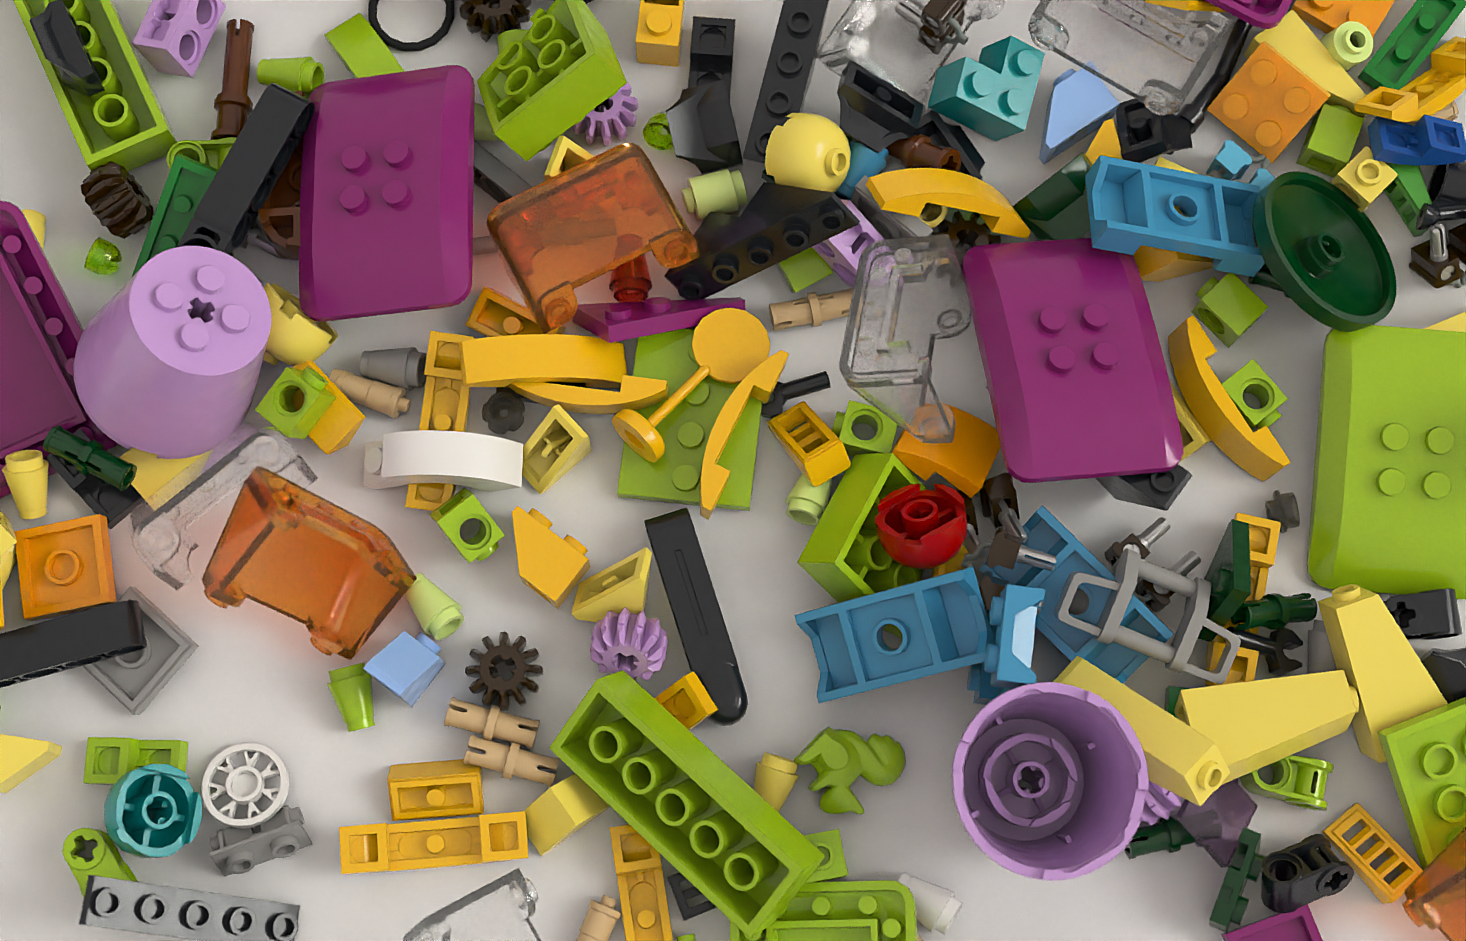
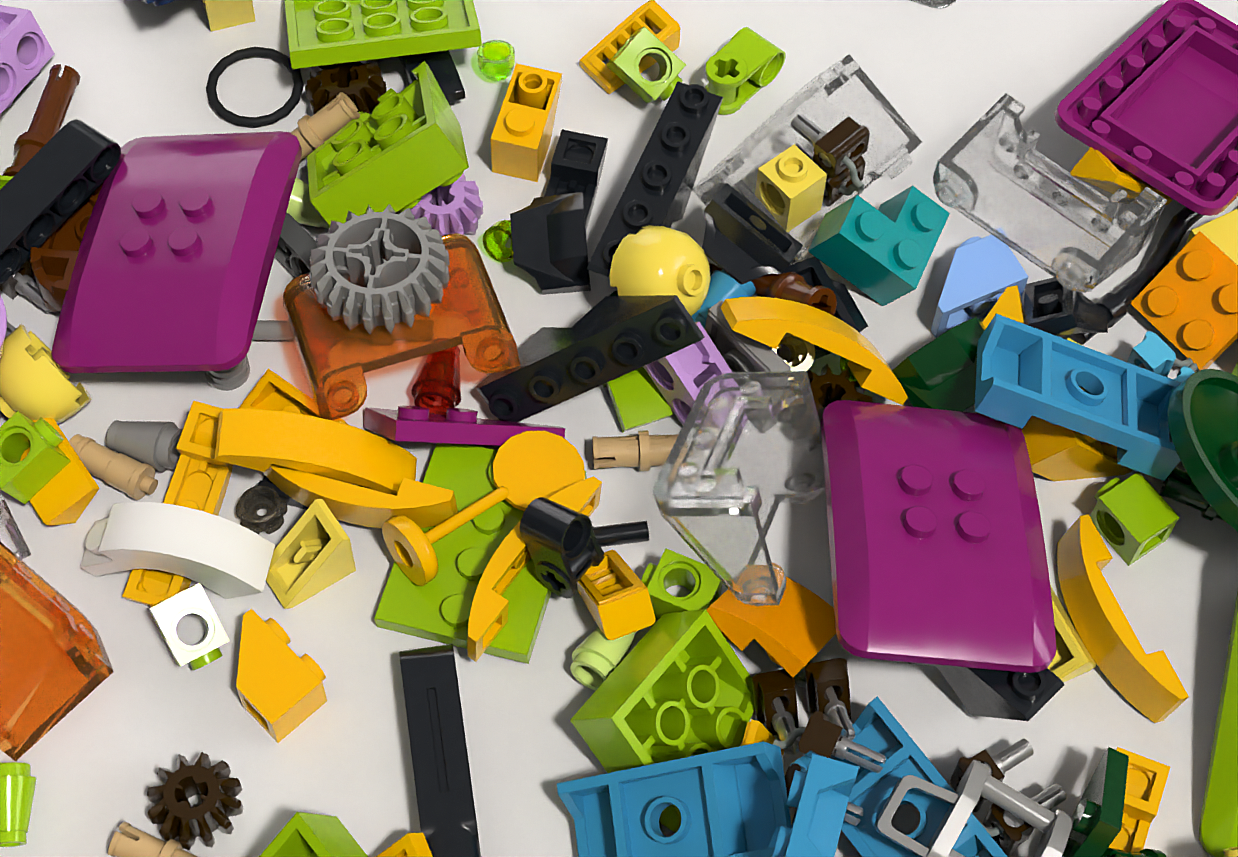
camera: 10 degrees right, 15 degrees down
(292, 73) = (115, 124): lime cone -> none
(362, 48) = (189, 111): lime slope -> none
(406, 666) = (77, 775): light blue slope -> none
(433, 608) = (128, 716): yellowish green cone -> none
(478, 53) = (325, 123): none -> tan pin
(536, 190) = (379, 269): none -> light grey gear
(614, 588) = (352, 730): light yellow slope -> none
(629, 644) = (351, 788): lavender gear -> none
(714, 192) = (549, 308): yellowish green brick -> none
(763, 414) = (559, 544): none -> black piece
(902, 47) = (791, 187): none -> light yellow brick
(922, 526) = (726, 698): red cylinder -> none
(1255, 381) = (1153, 601): lime brick -> none
(1284, 510) = (1178, 754): clear smoke plate -> none

